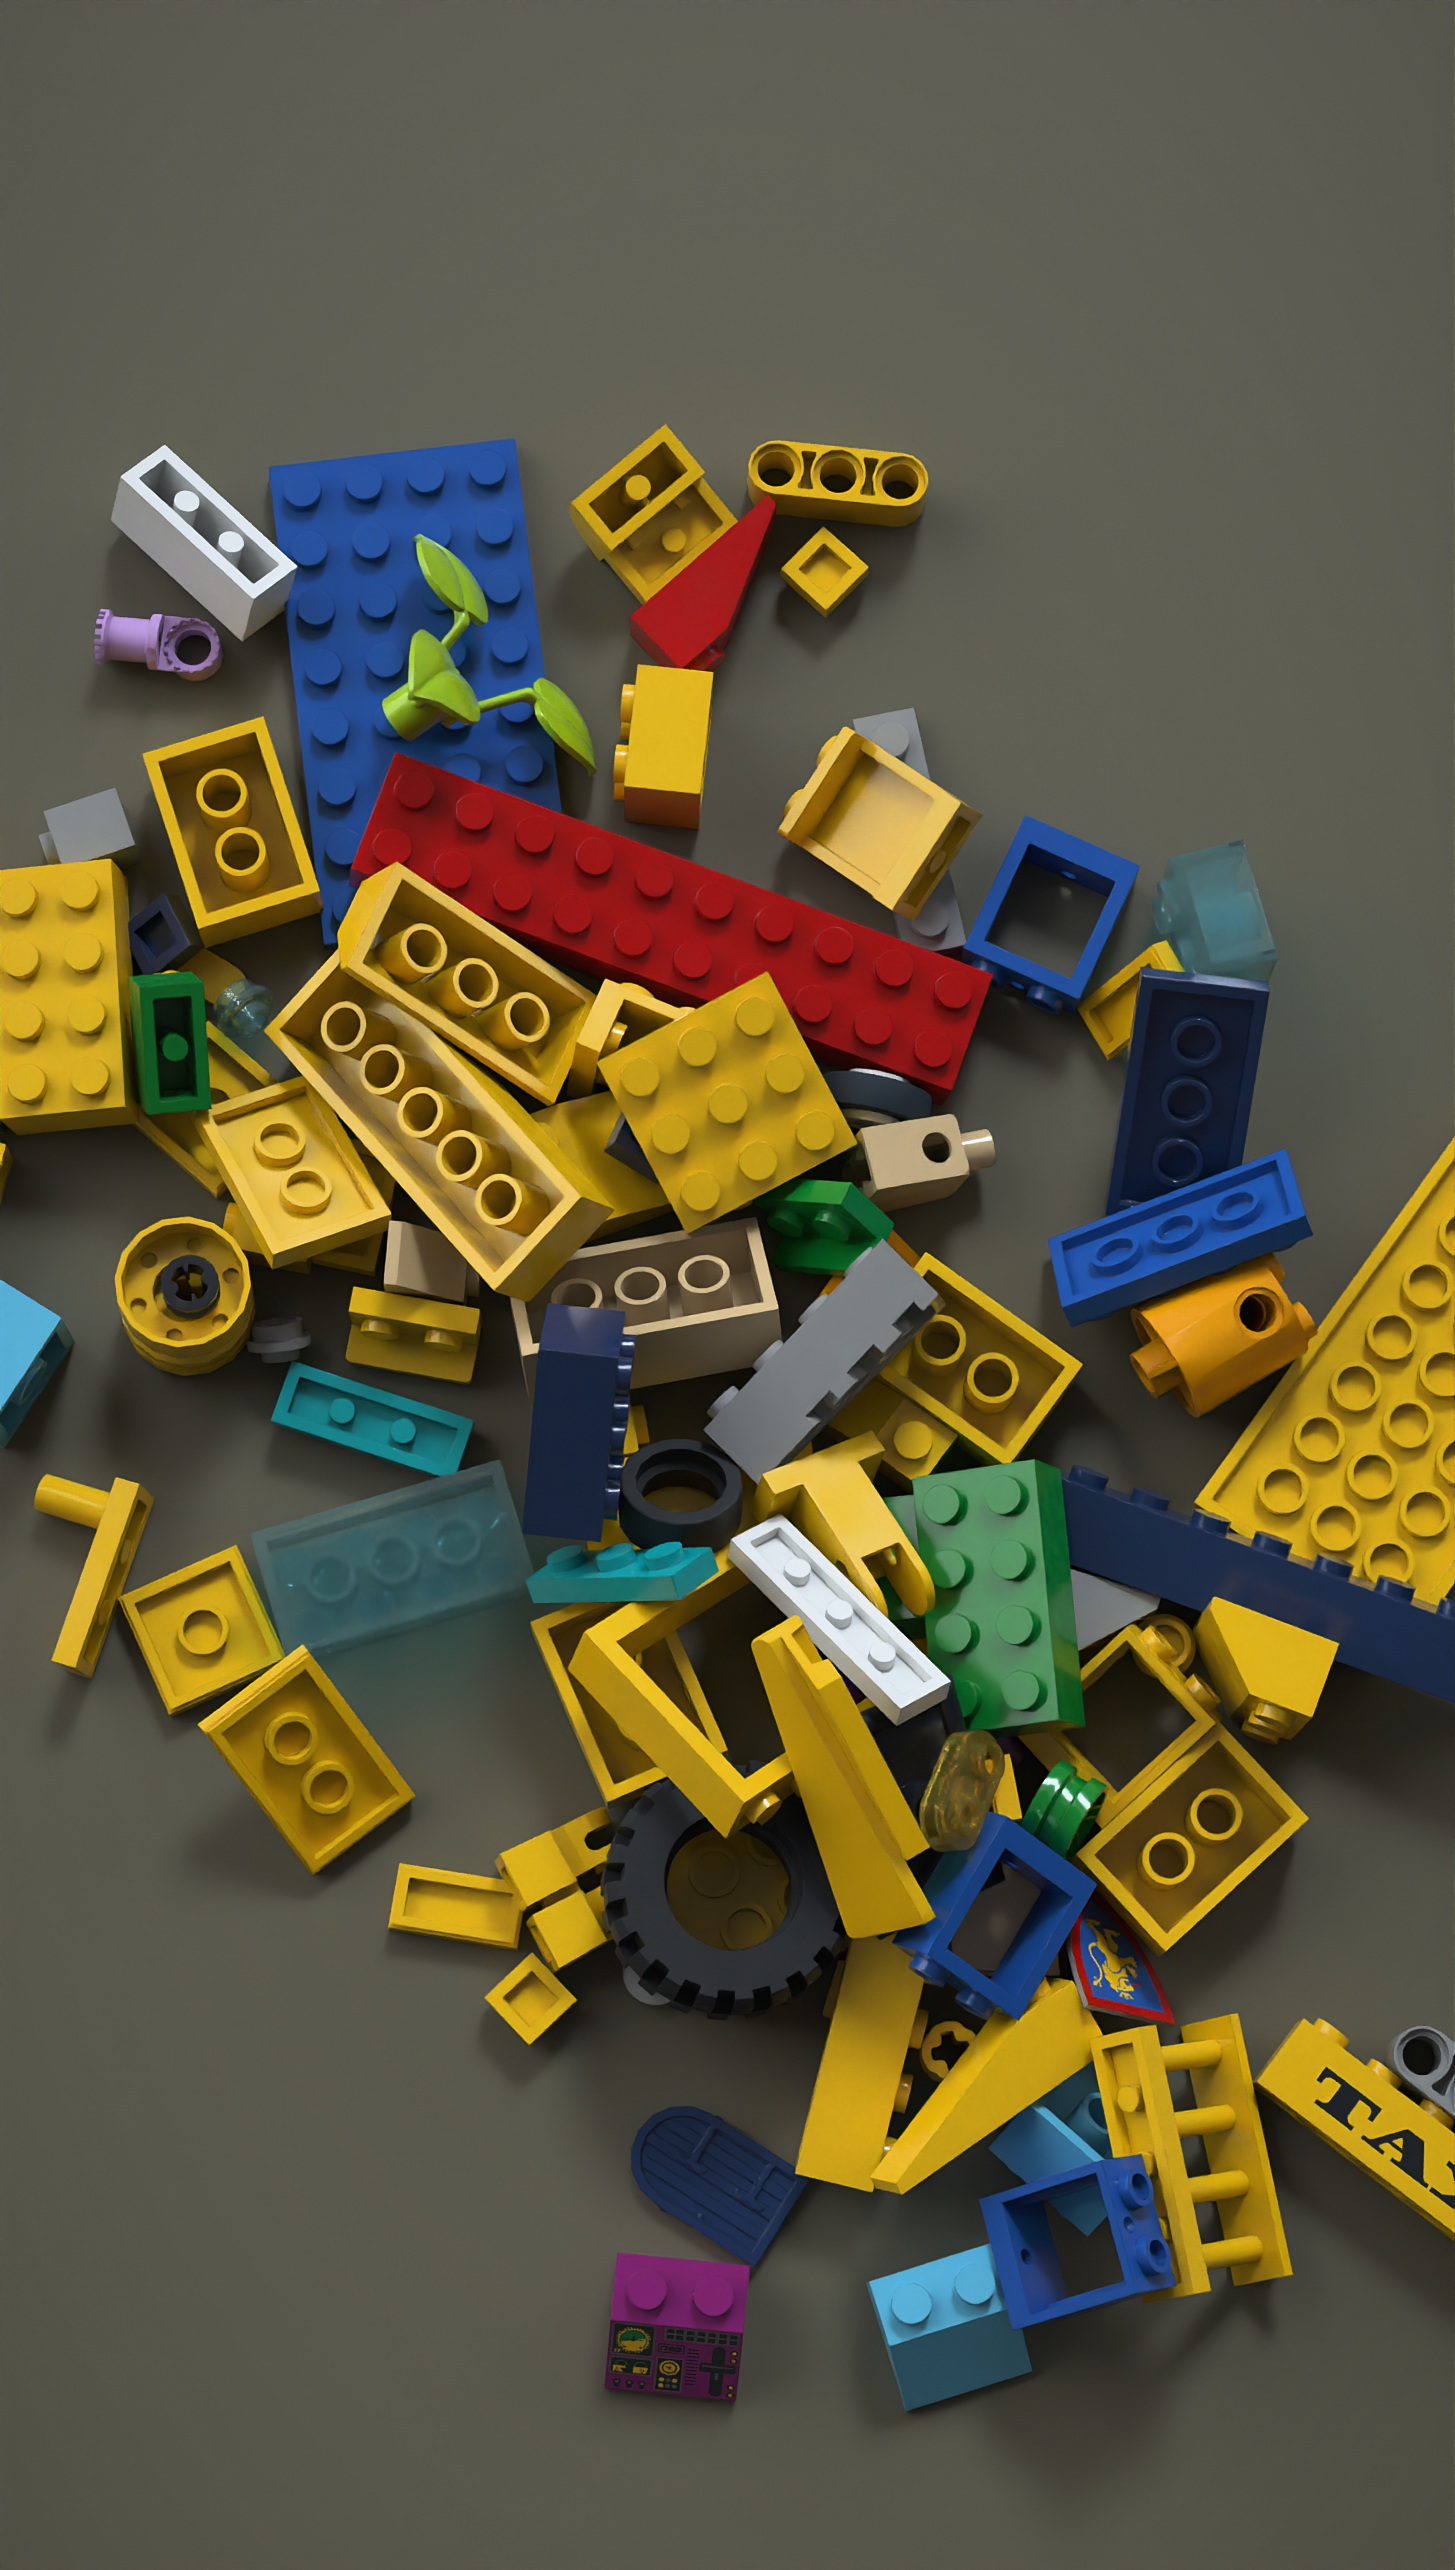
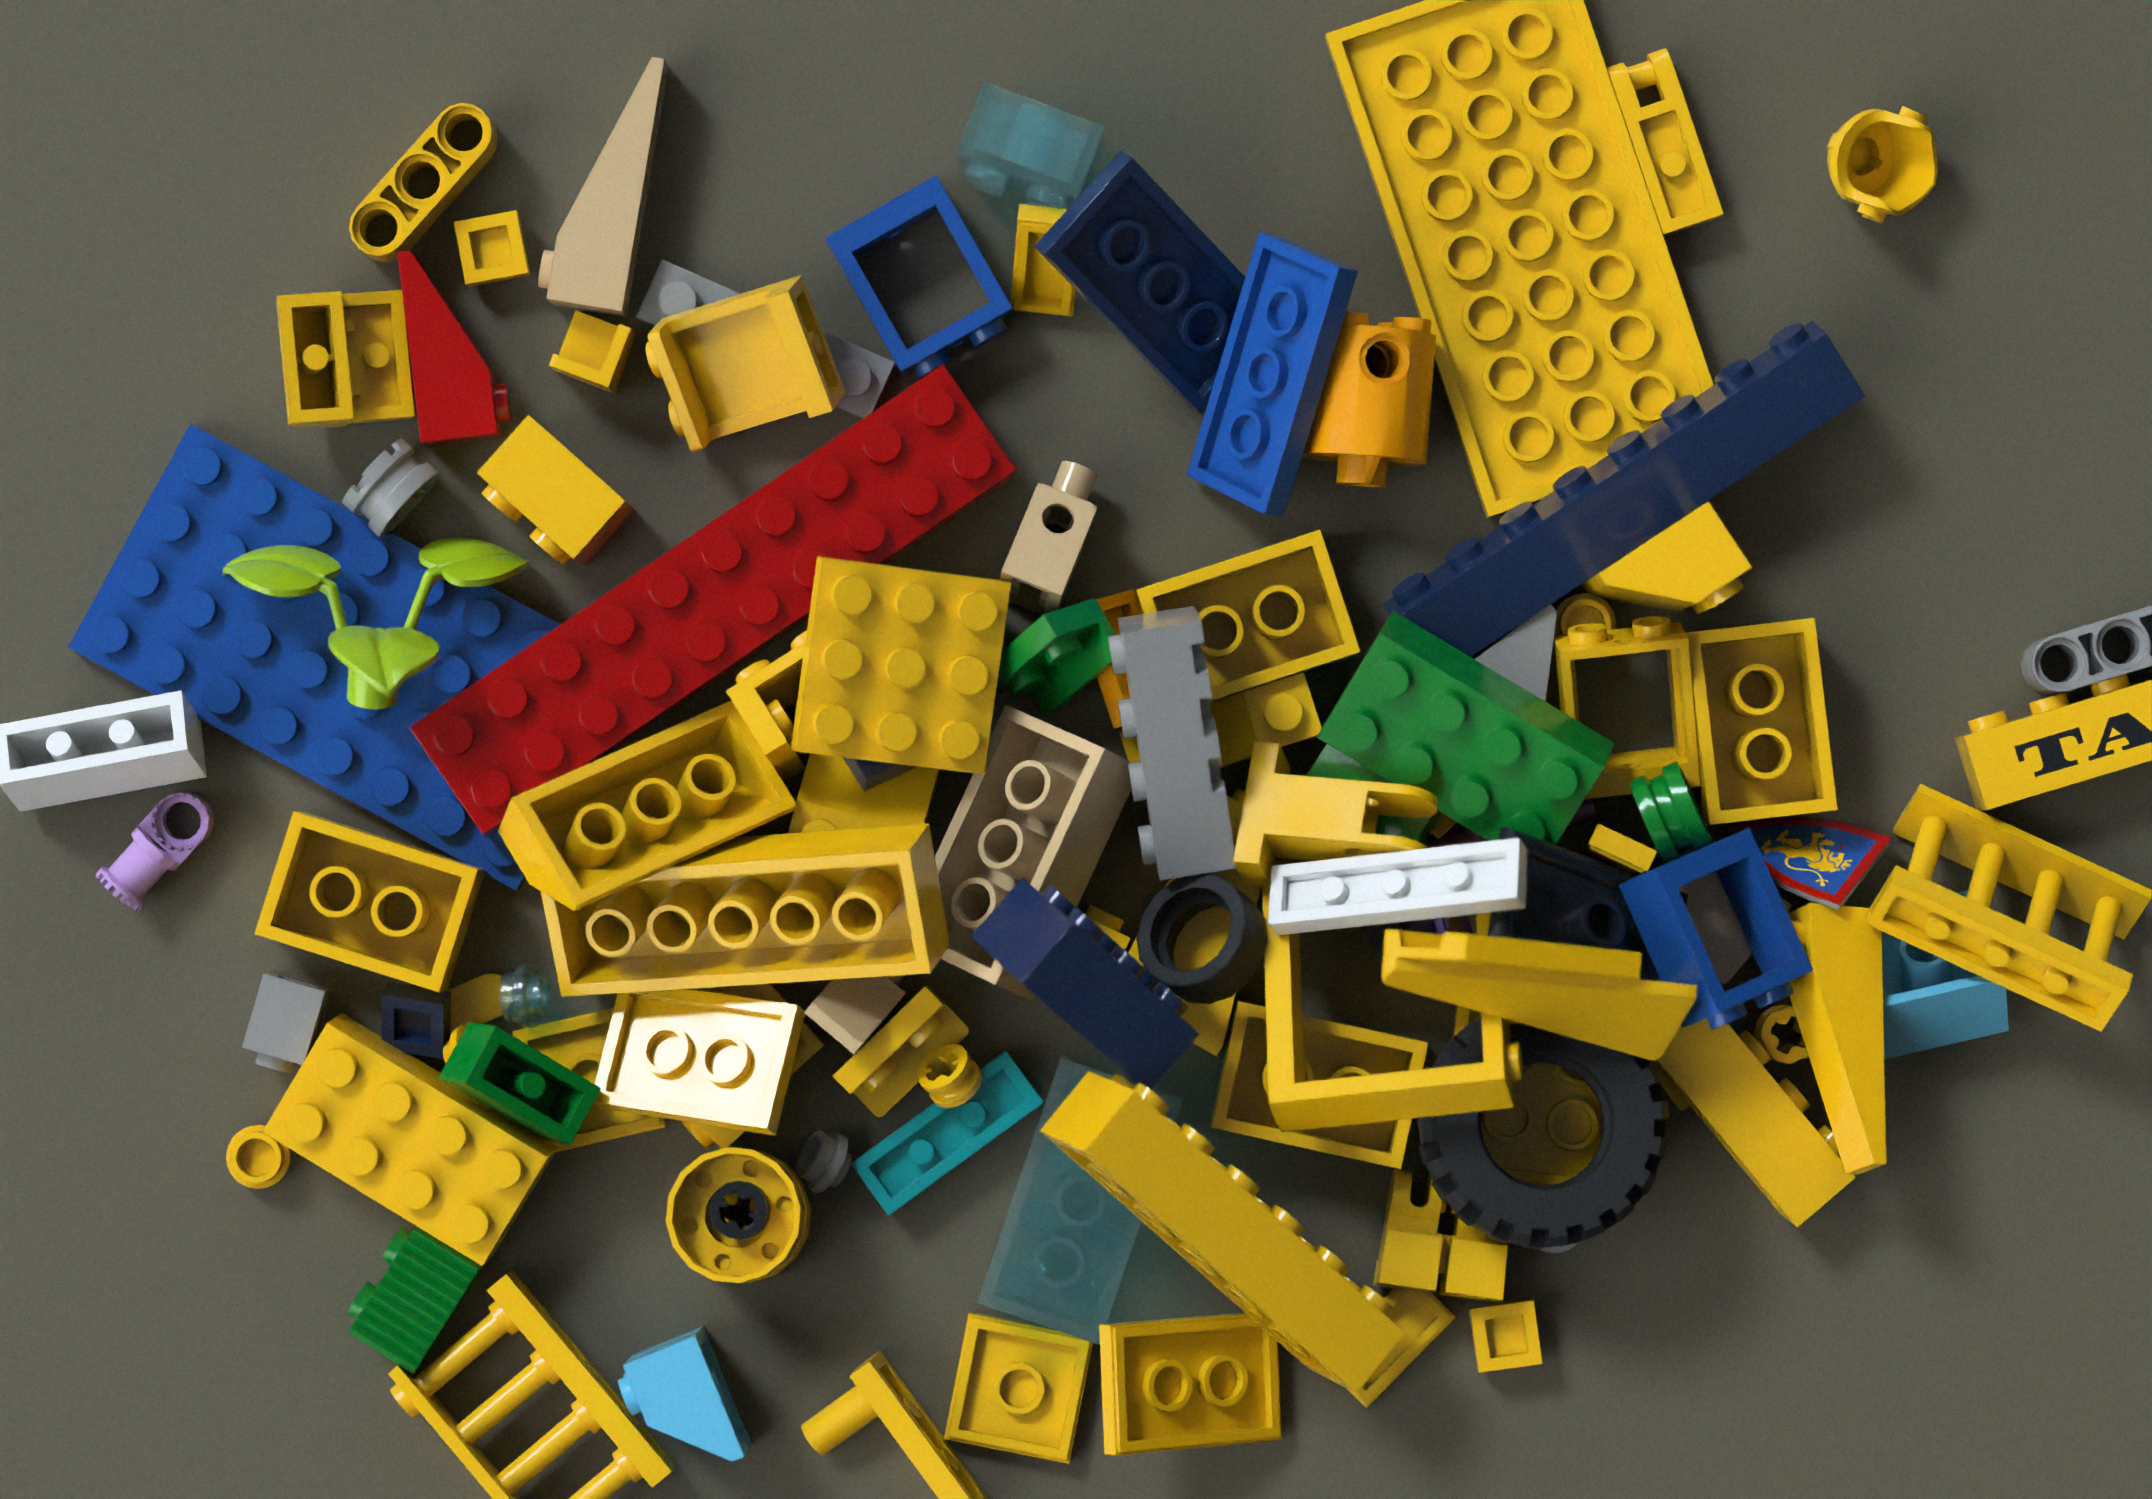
camera: 50 degrees left, 10 degrees up
(421, 1387) = (949, 1075): none -> yellow bush
(452, 1686) = (1224, 1229): none -> yellow brick
(576, 623) = (391, 488): none -> light grey wheel
(621, 1574) = (1235, 1031): teal plate -> none
(676, 2326) = (1842, 1400): magenta slope -> none
(715, 2179) = (1748, 1289): dark blue window -> none
(800, 708) = (594, 351): none -> yellow panel
(876, 1097) = (978, 535): black wheel -> none
(907, 643) = (603, 230): none -> tan slope
(948, 2327) = (1995, 1186): medium azure slope -> none
(961, 1790) = (1605, 888): clear yellow plate -> none
(1020, 2225) = (2025, 1103): blue window -> none

